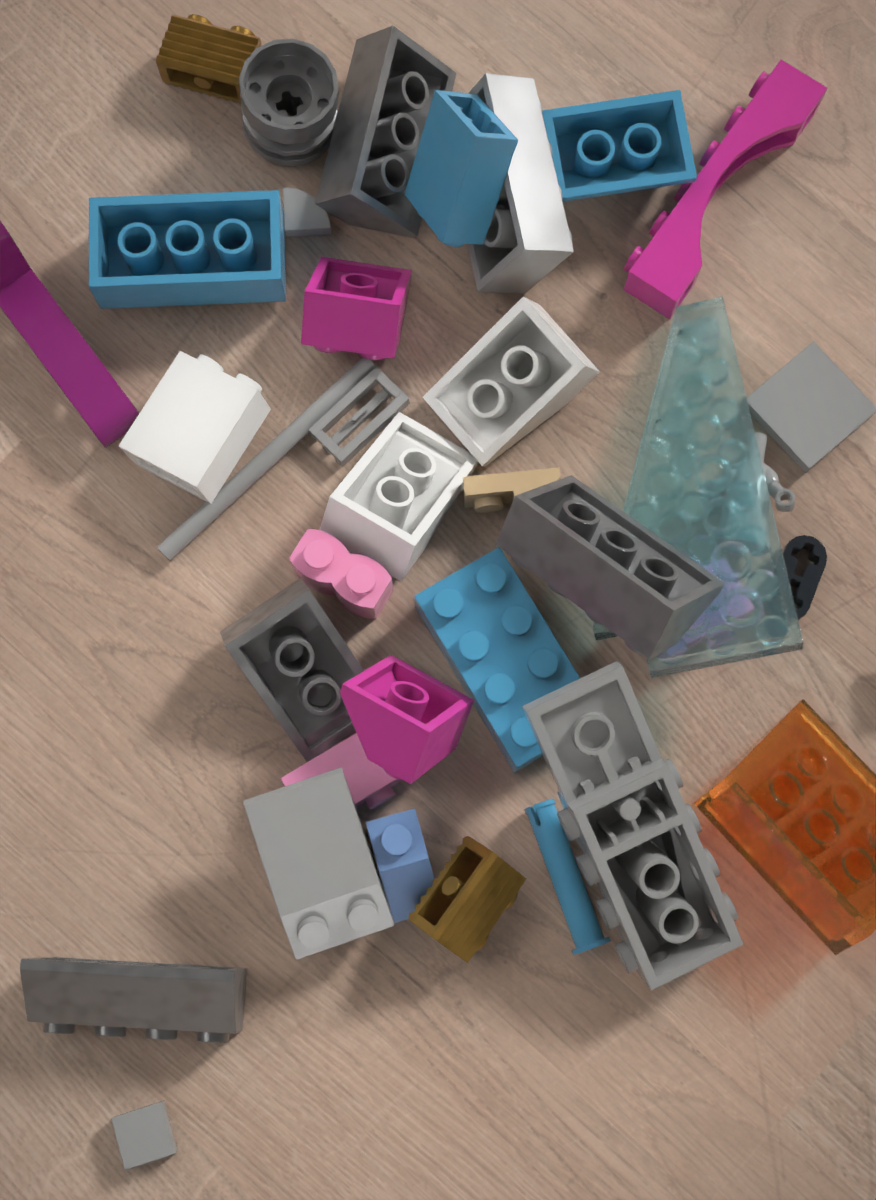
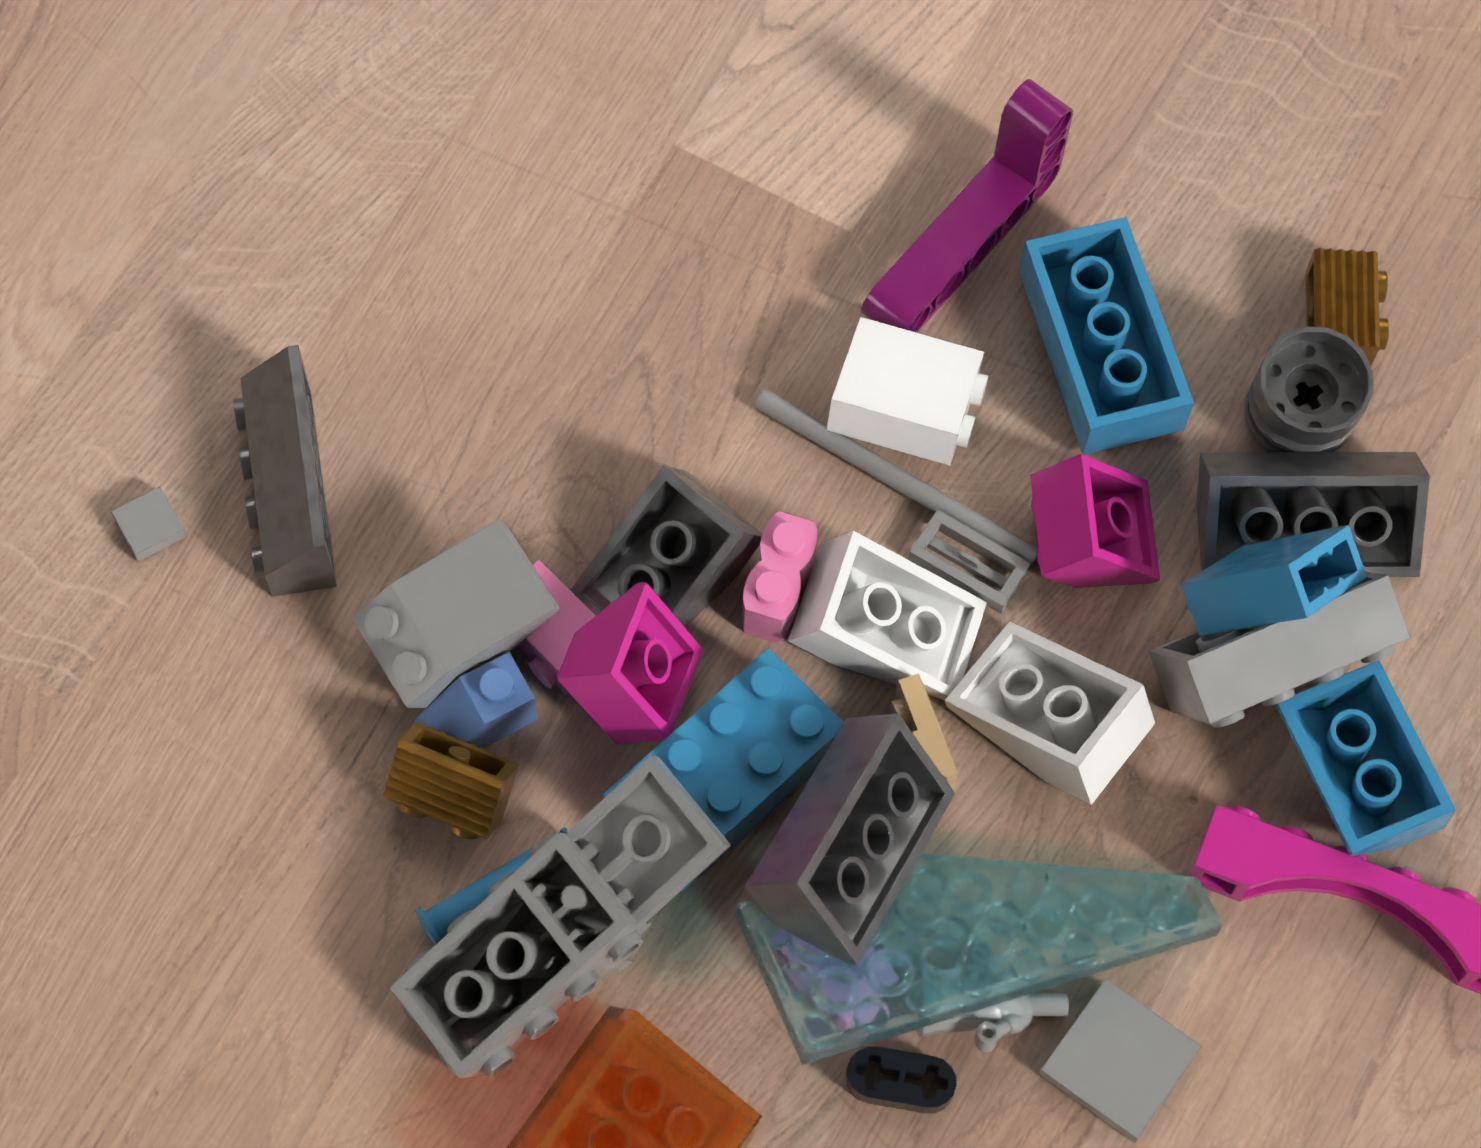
camera: 75 degrees right, 10 degrees down
(303, 216) = (1184, 448): light grey tile -> none

